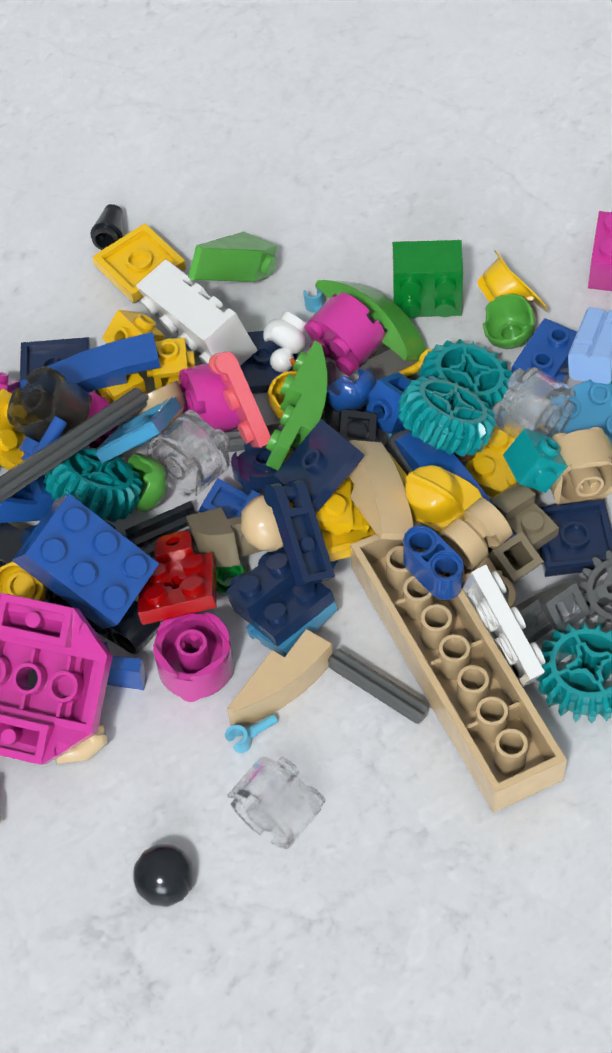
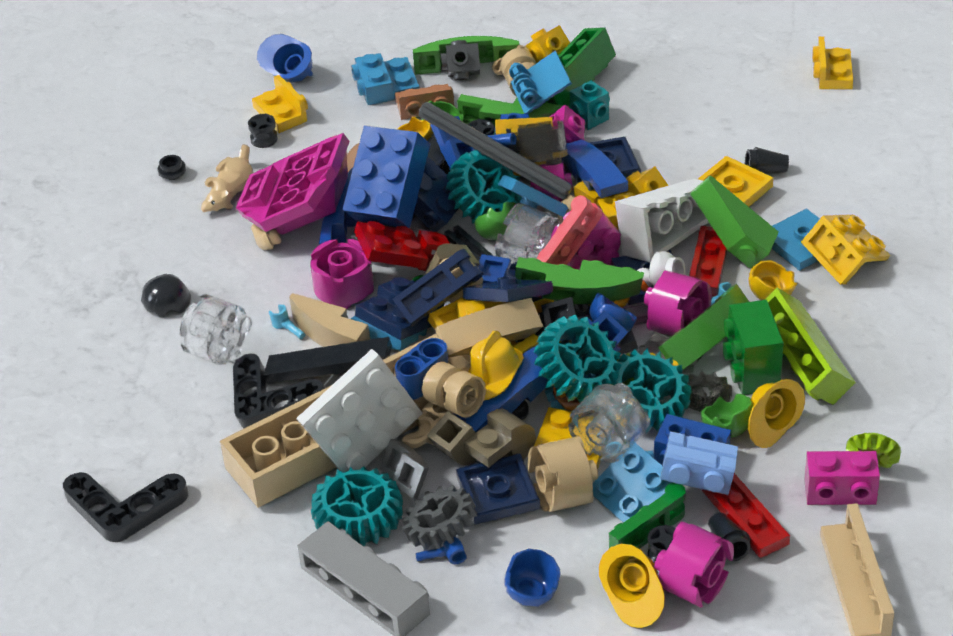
camera: 80 degrees right, 15 degrees down
(243, 212) = (789, 238): none -> dark azure plate
(259, 301) = (709, 258): none -> red plate
(282, 185) = (843, 245): none -> yellow bracket
(316, 255) = (768, 276): none -> yellow hair
(346, 683) = (322, 360): none -> black tile
(402, 757) = (263, 401): none -> black beam
(451, 328) = (717, 385): none -> clear smoke gear
(476, 233) = (809, 350): none -> lime brick
(535, 460) = (546, 425): teal brick -> none
(548, 942) = (169, 489): none -> black beam
(584, 219) = (887, 449): none -> lime gear

